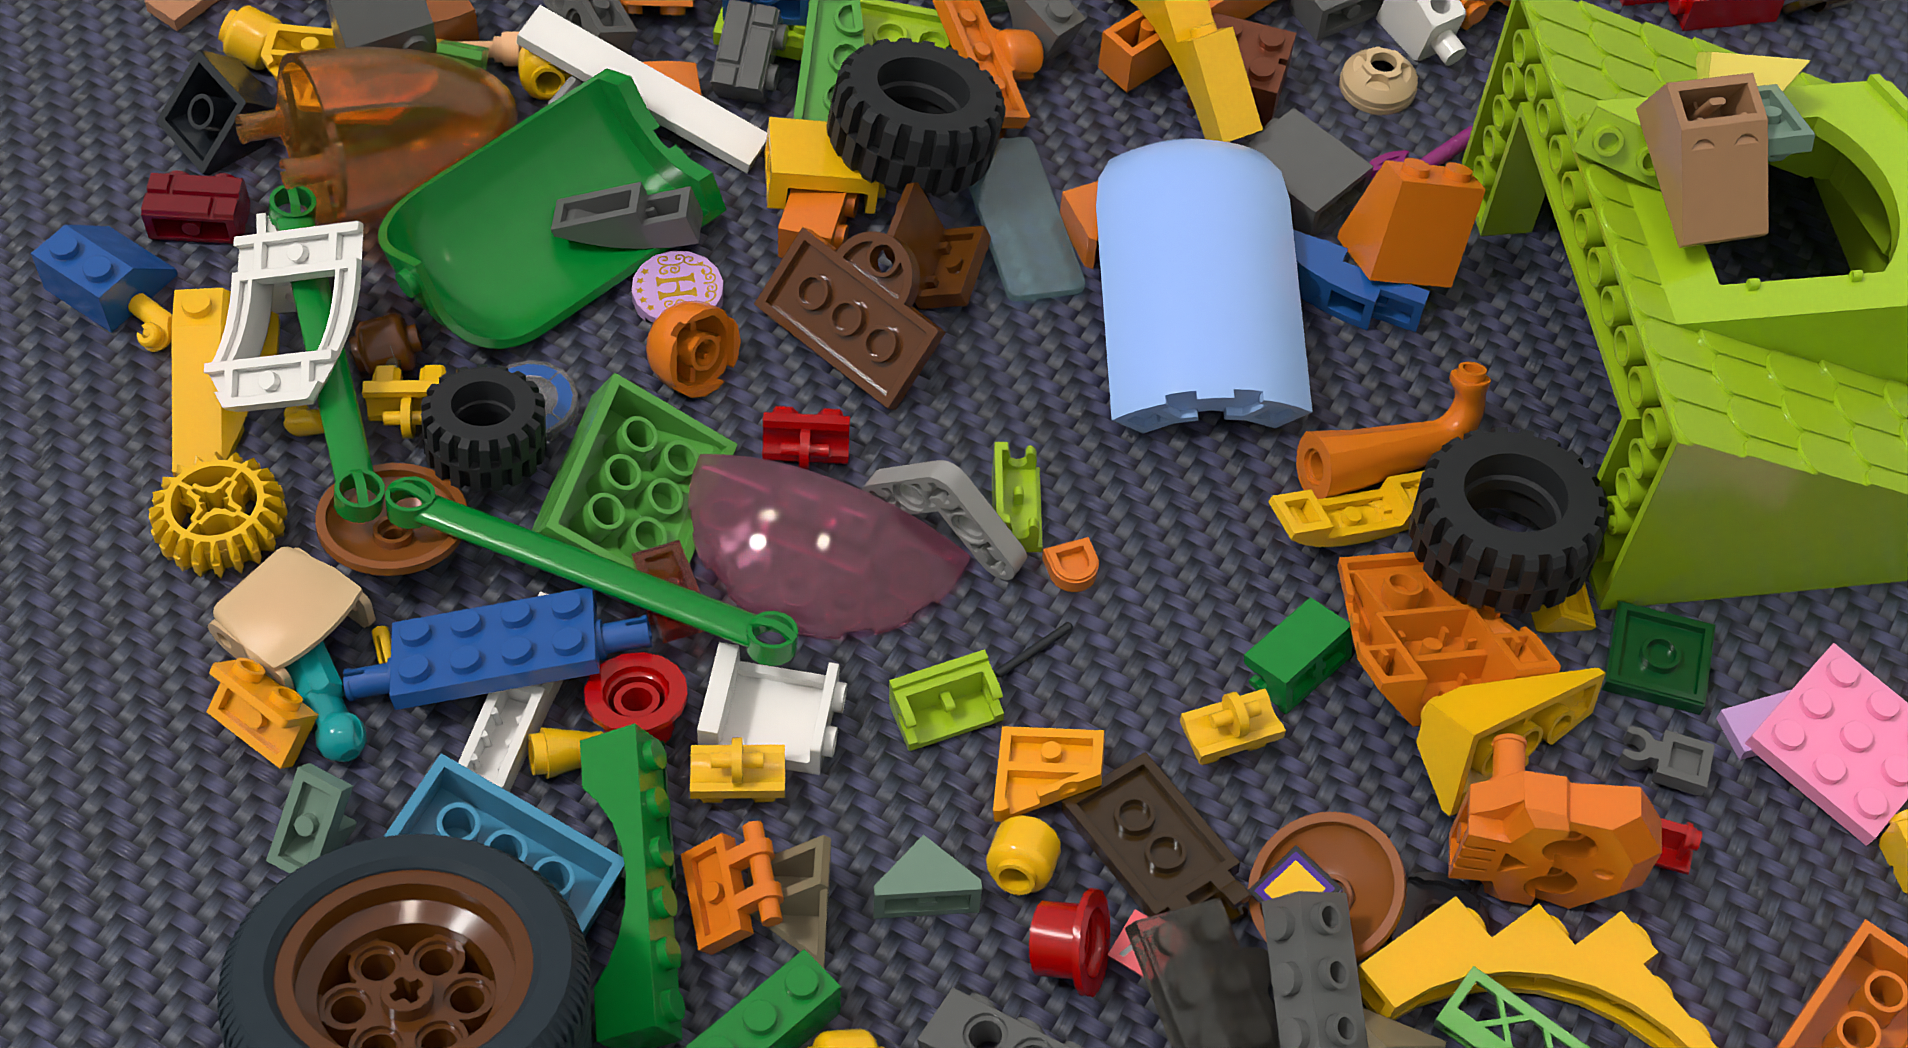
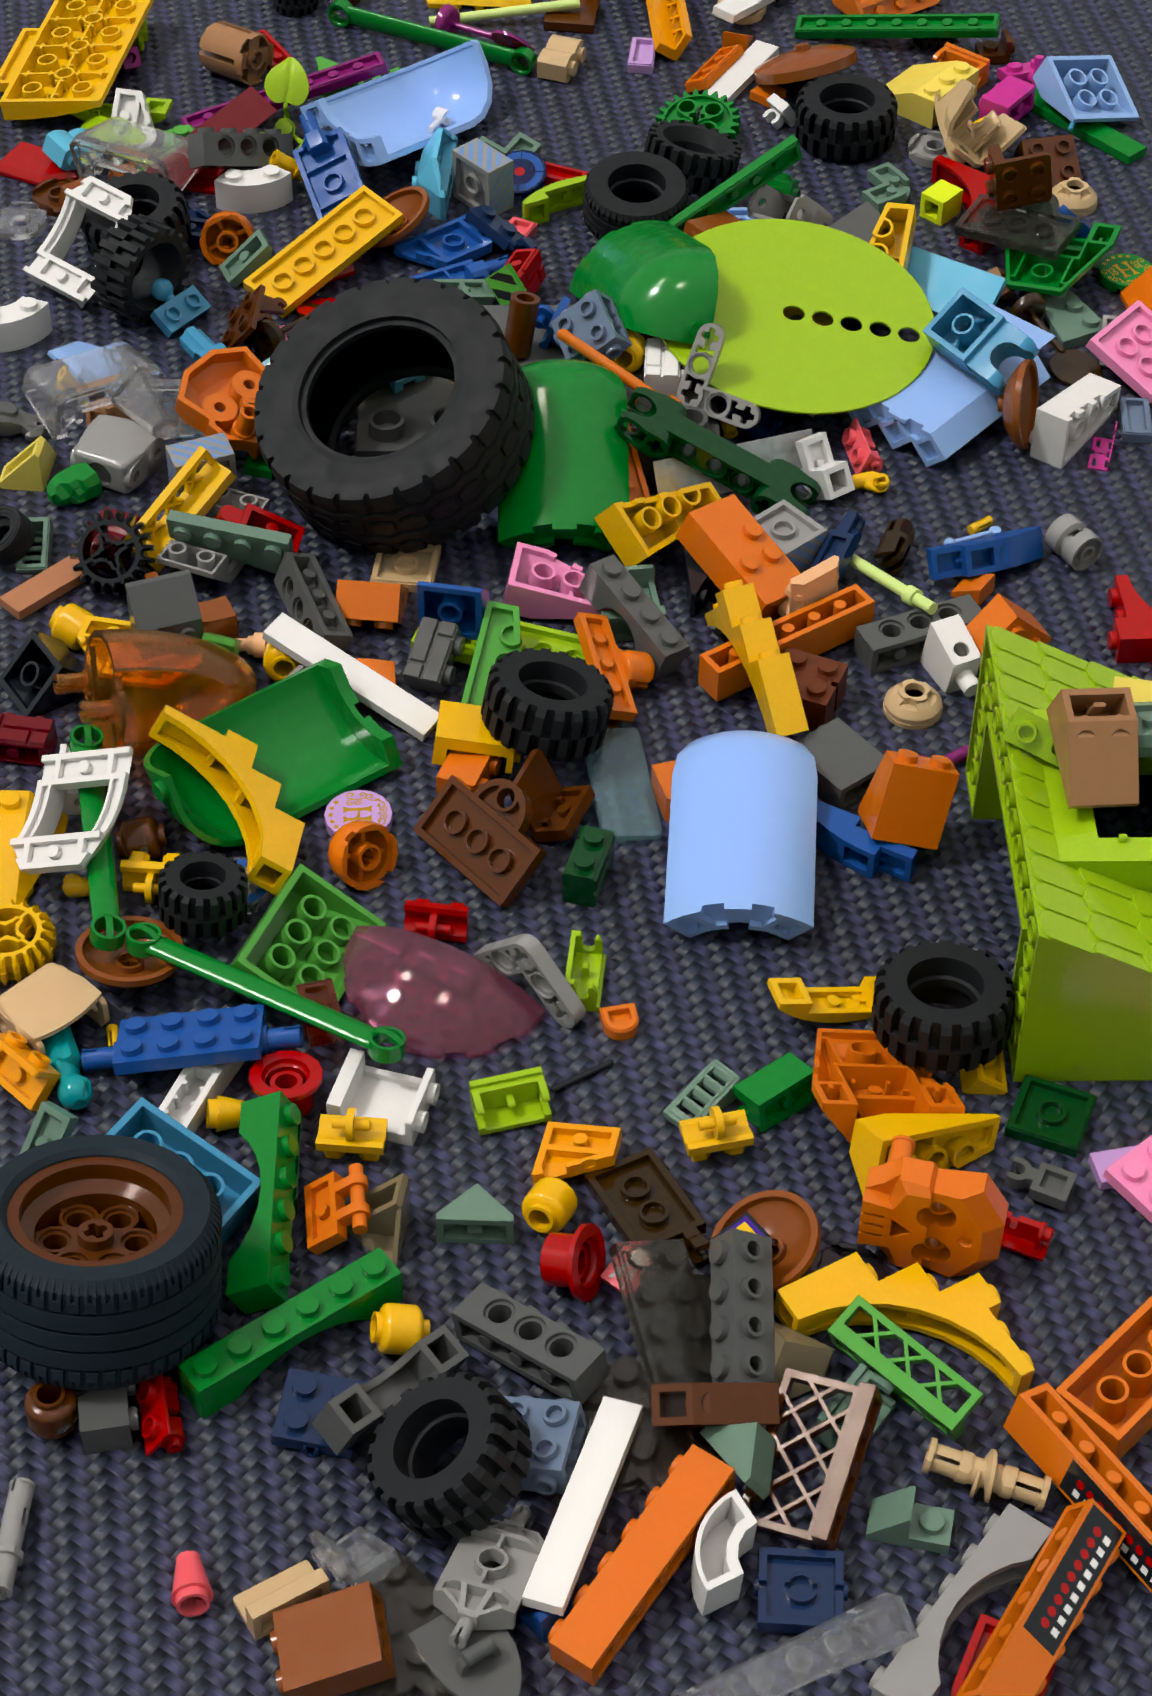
camera: 10 degrees right, 10 degrees down
(493, 230) = (227, 764): none -> yellow arch
(630, 218) = (329, 764): dark grey slope -> none
(998, 342) = (588, 866): none -> dark green brick
(1219, 645) = (716, 1079): none -> sand green slope
(1353, 459) = (847, 962): orange animal -> none

